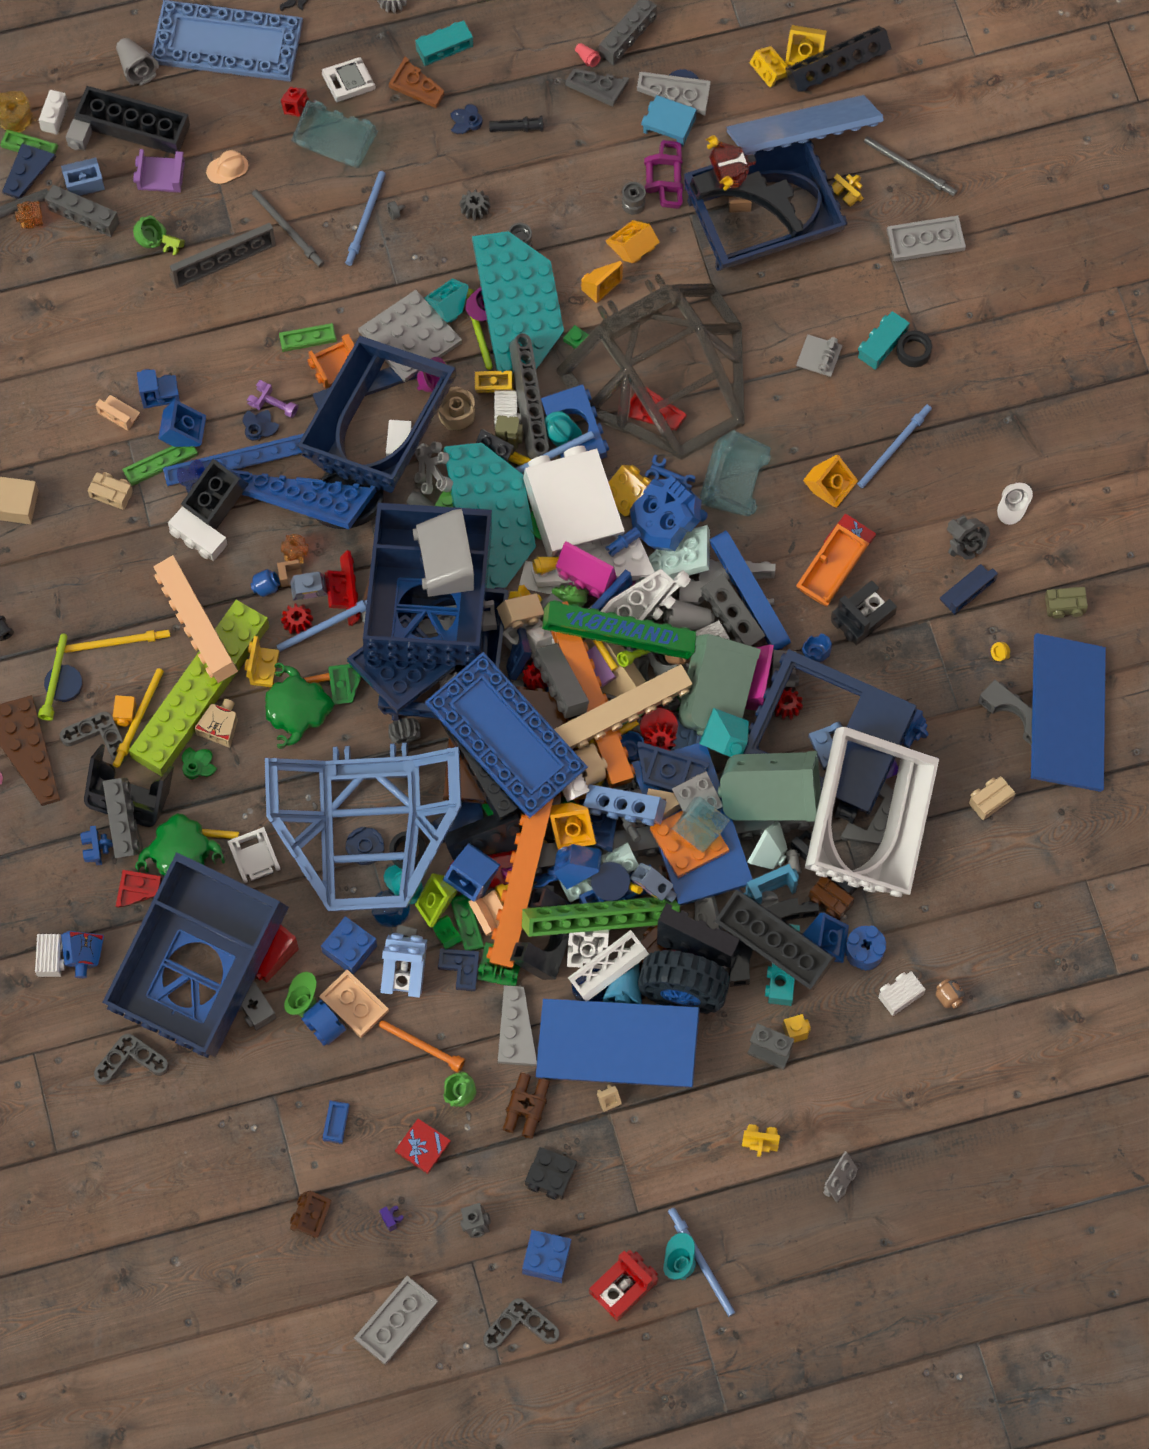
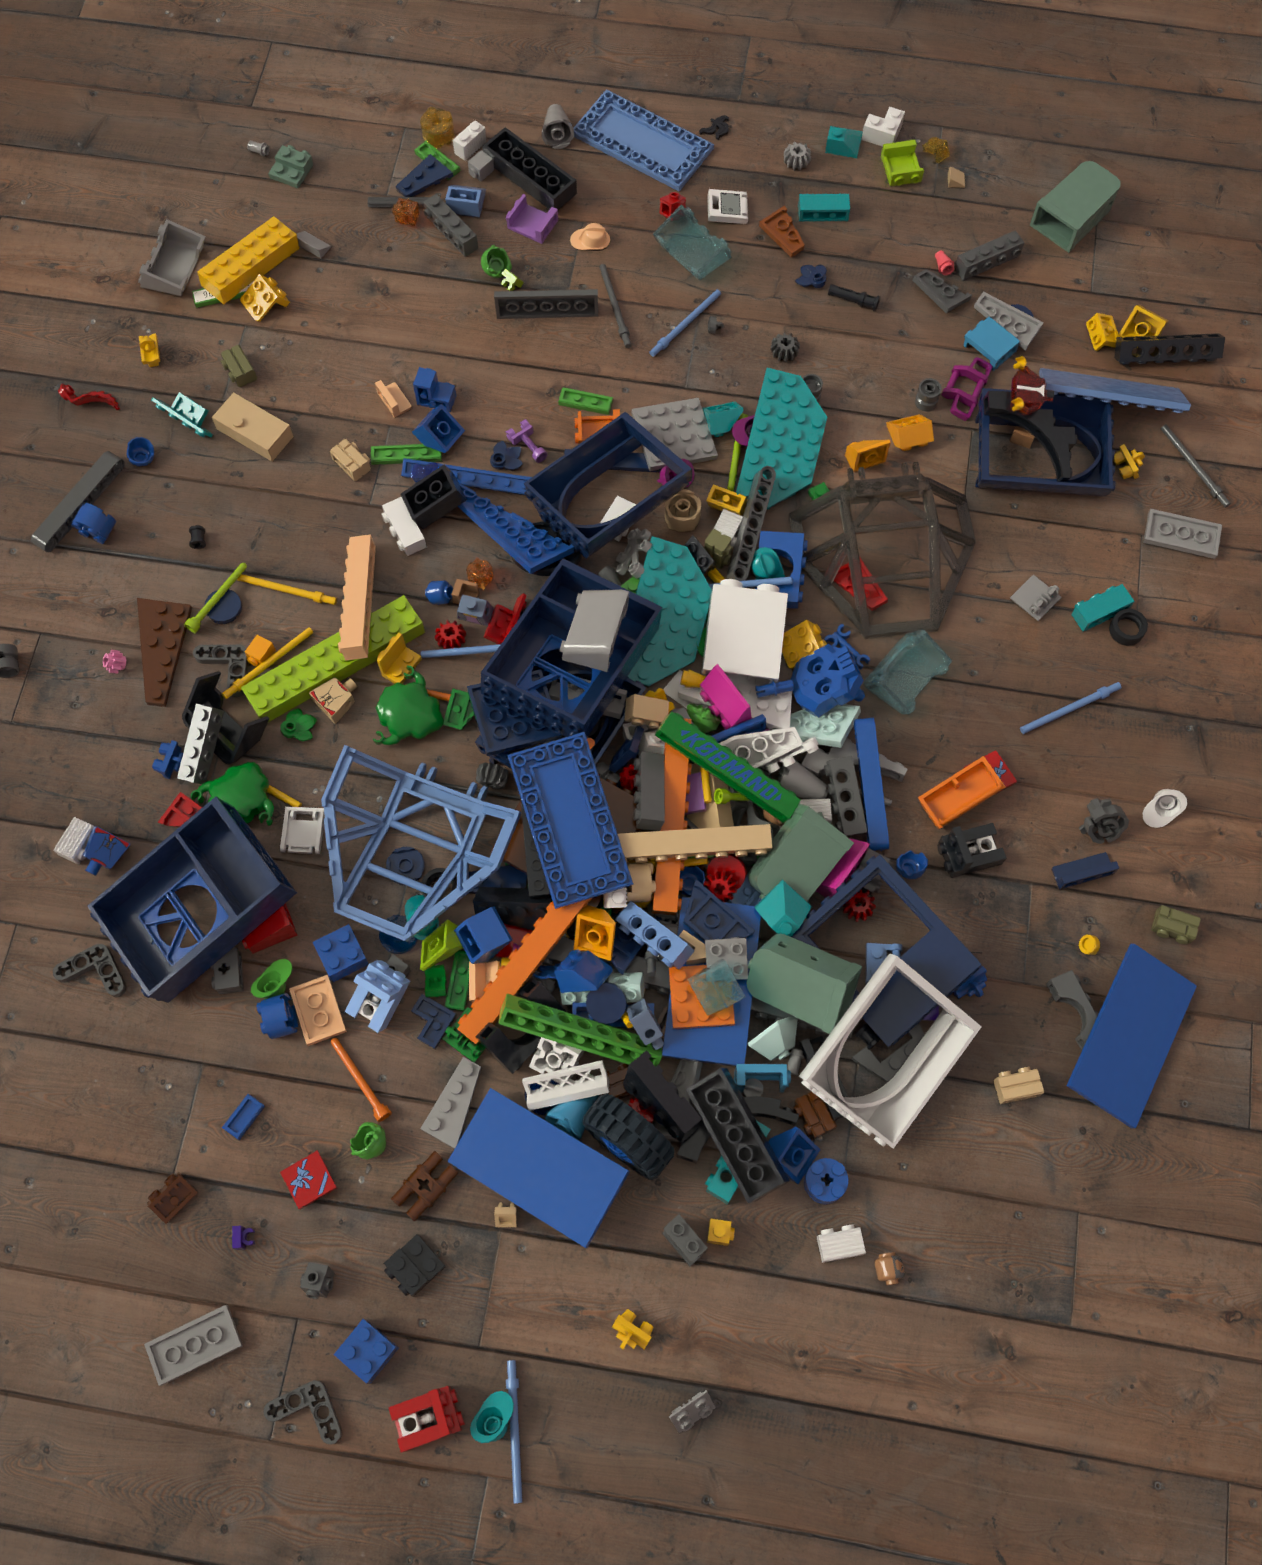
camera: 25 degrees right, 0 degrees up
(831, 480) = (996, 714): light orange slope -> none

